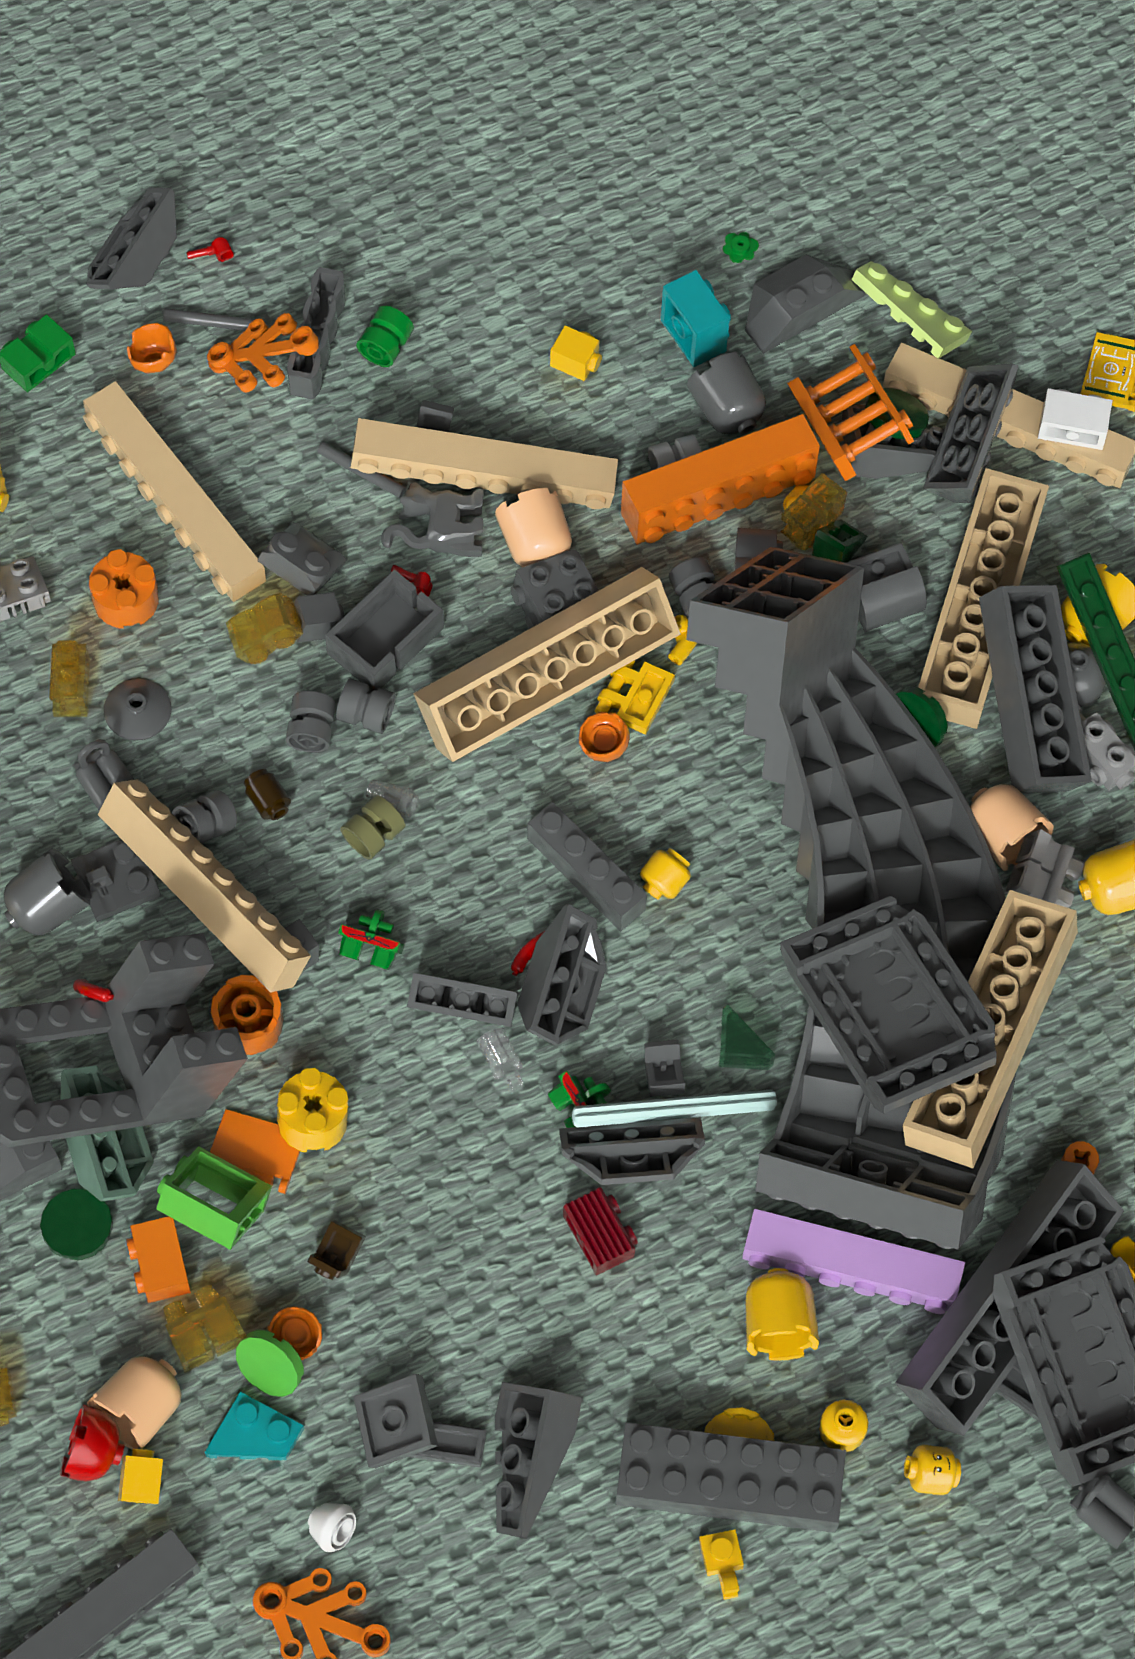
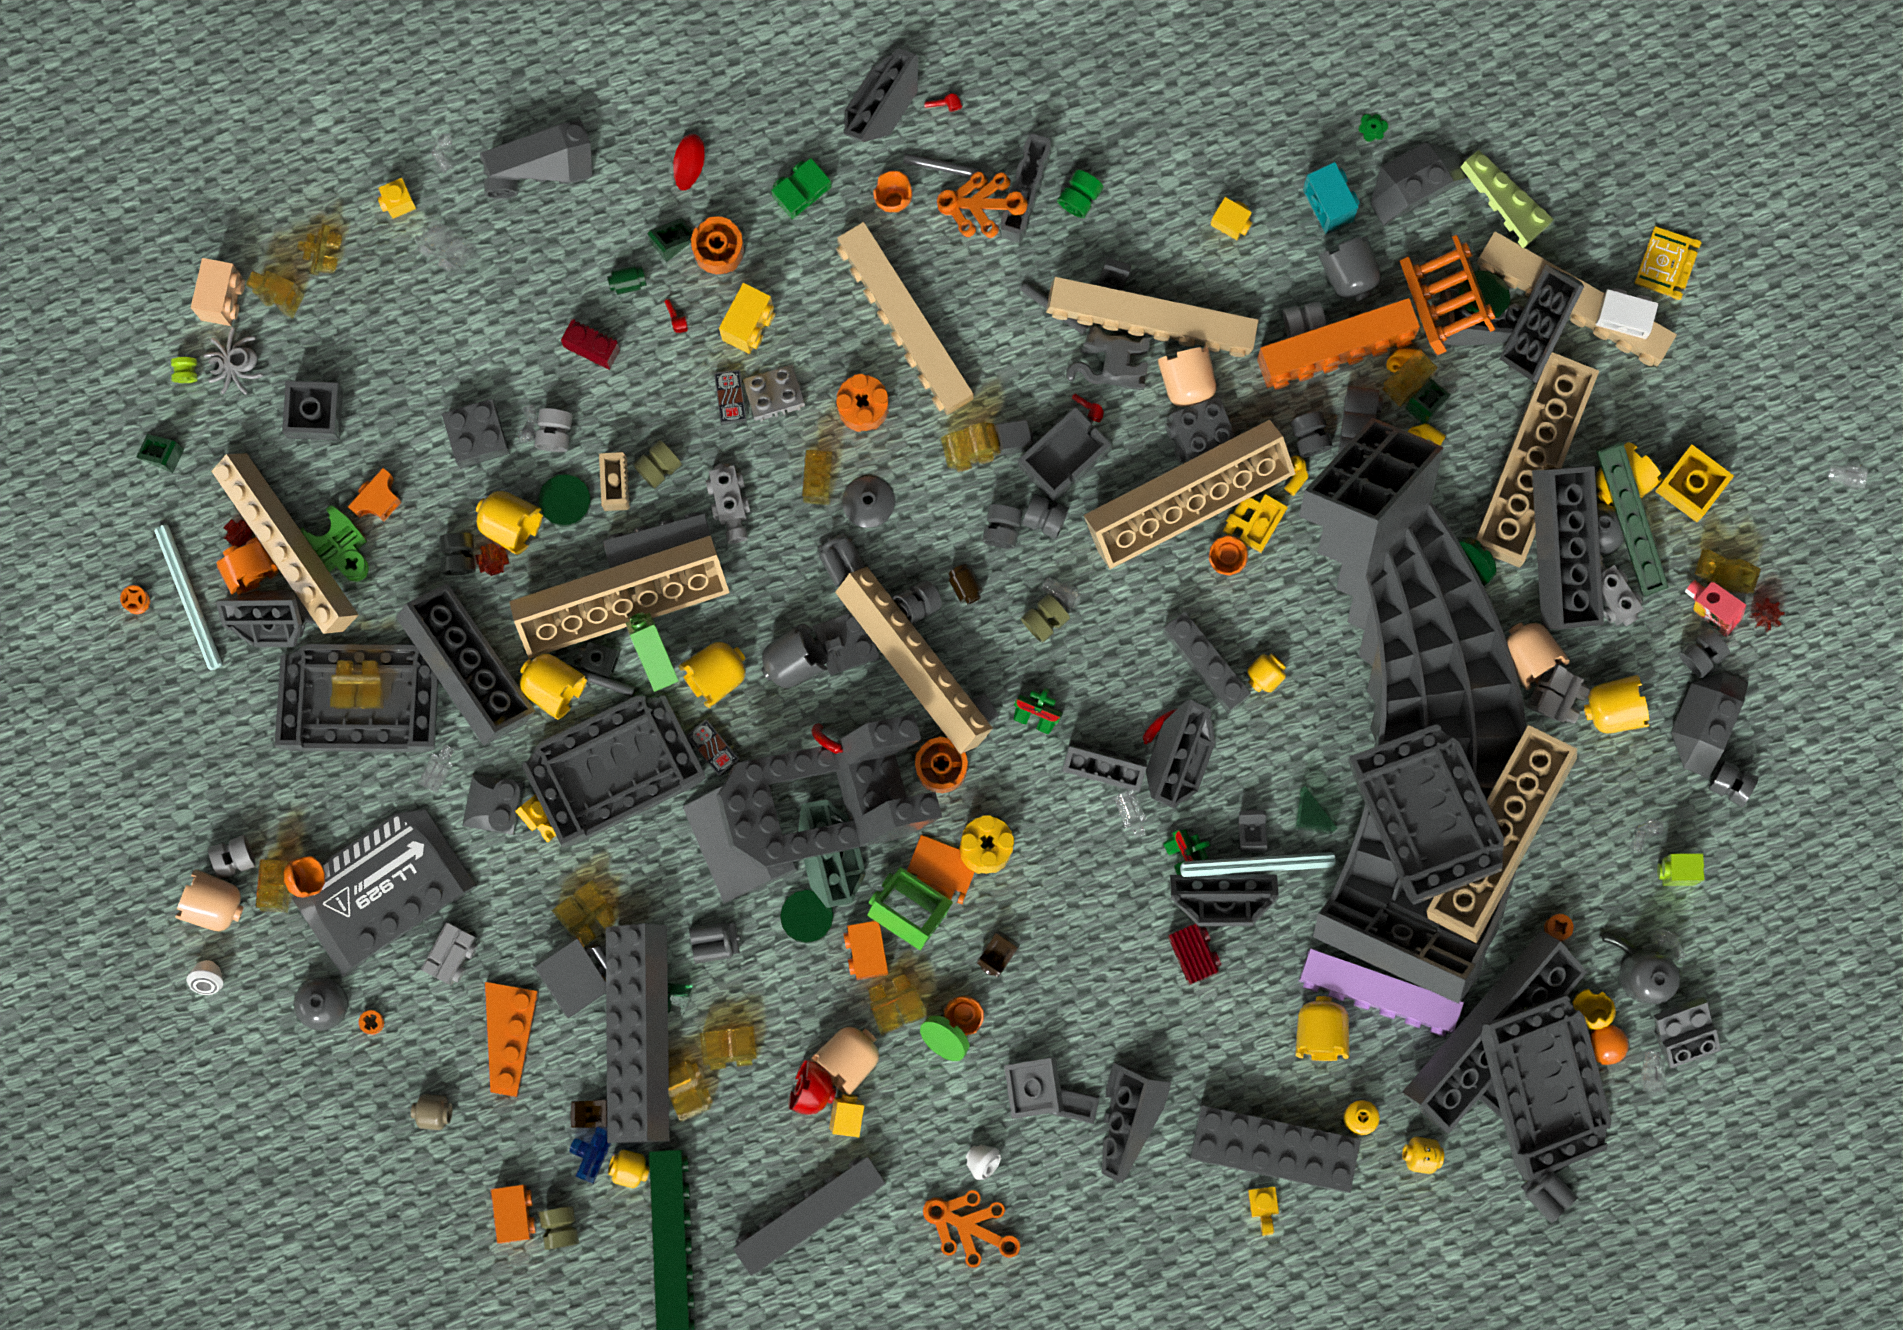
camera: 10 degrees right, 15 degrees up
(254, 1432) = (930, 1085): teal wing -> none
(301, 559) = (1003, 387): dark grey slope -> none
(740, 1423) = (1285, 1111): yellow plate -> none
(889, 587) = (1463, 443): dark grey brick -> none

